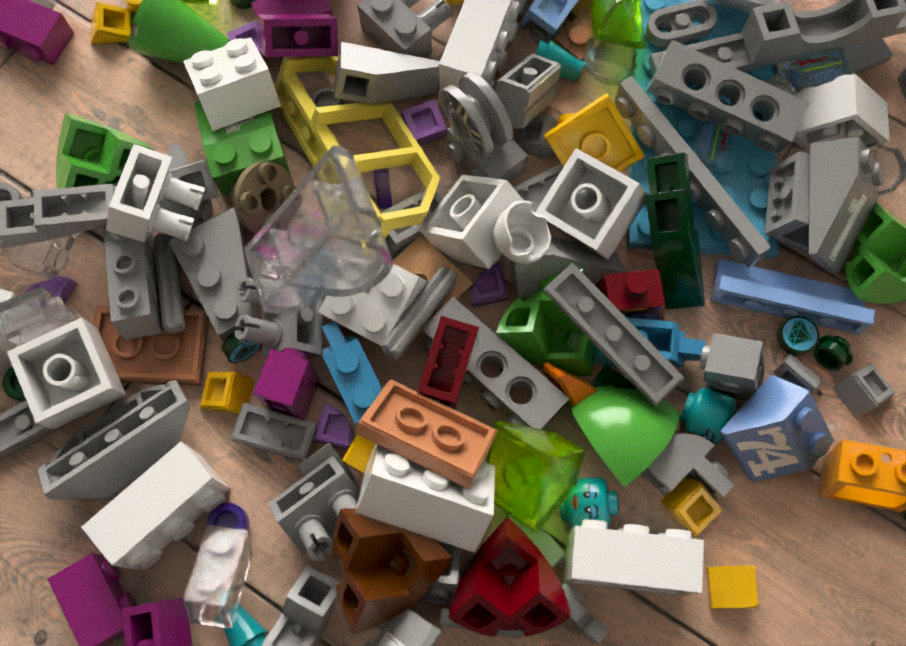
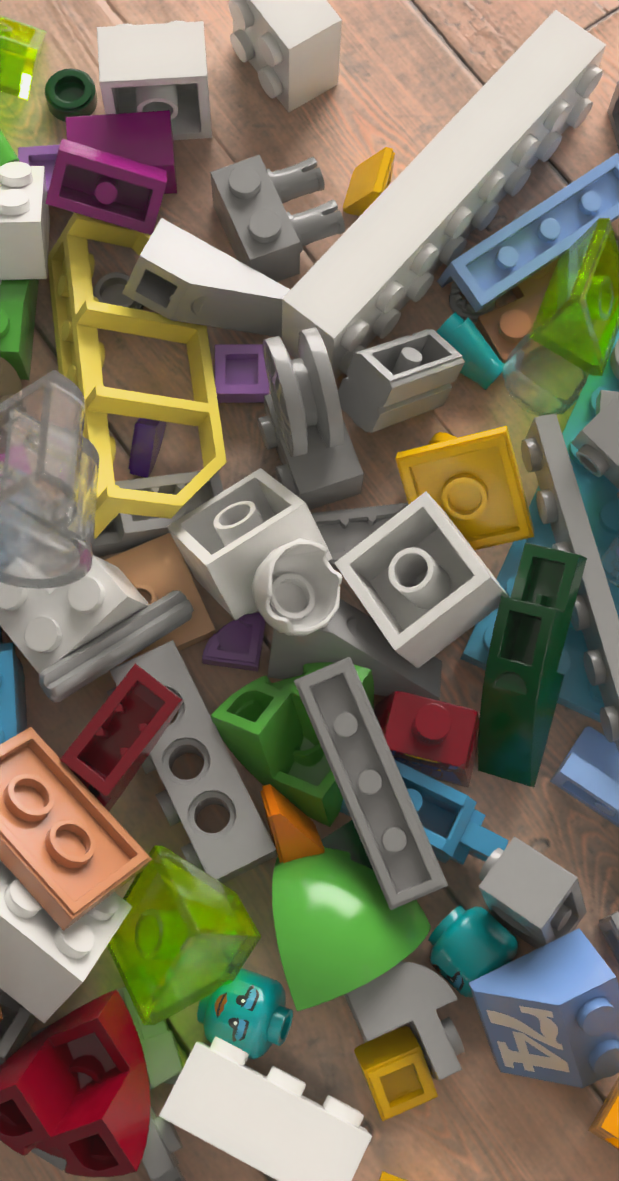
camera: 15 degrees right, 0 degrees up
(532, 137) = (382, 446): light grey slope -> none

